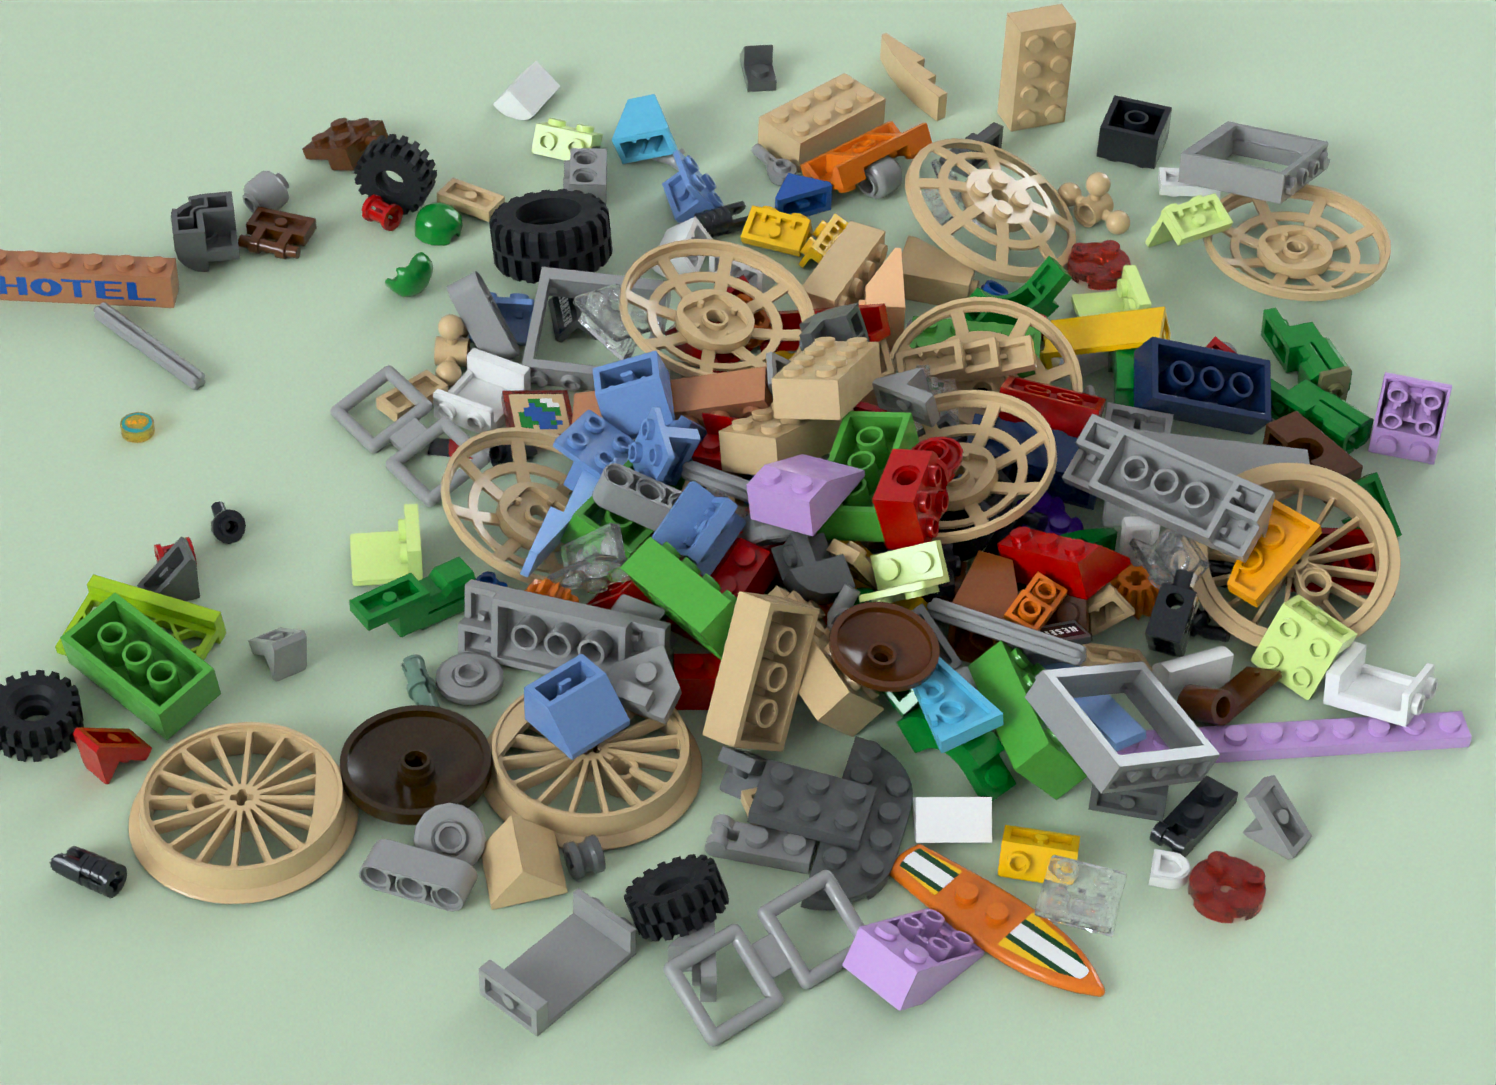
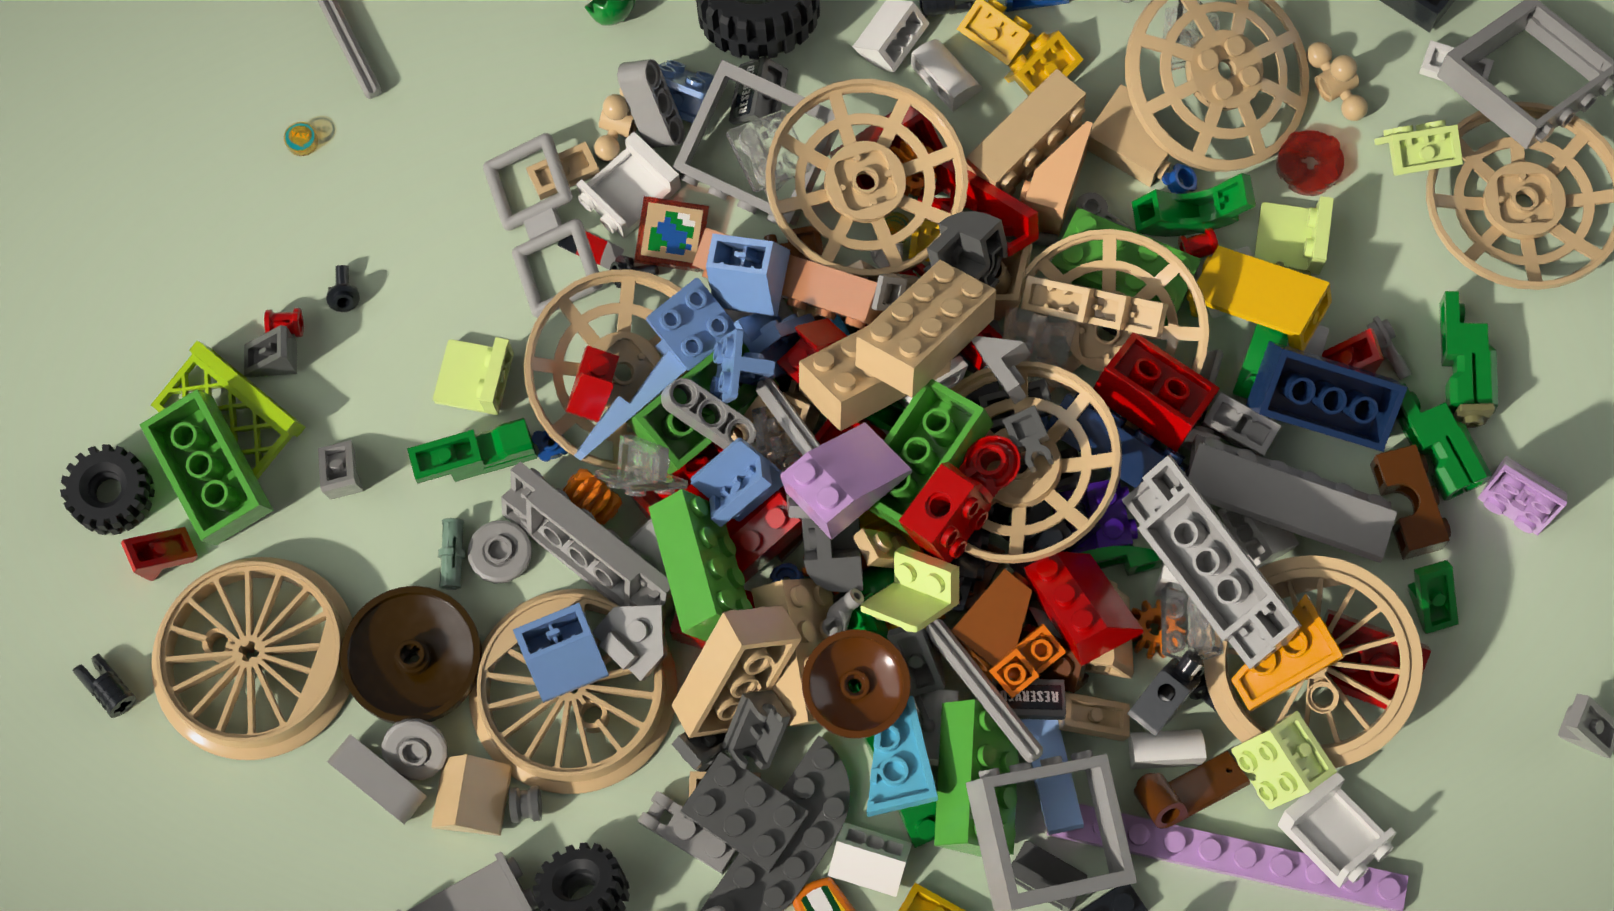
camera: 25 degrees right, 30 degrees up
(518, 512) = (592, 384): none -> red slope
(797, 726) = (756, 729): none -> dark grey hinge
(963, 431) = (1028, 434): none -> dark grey plate

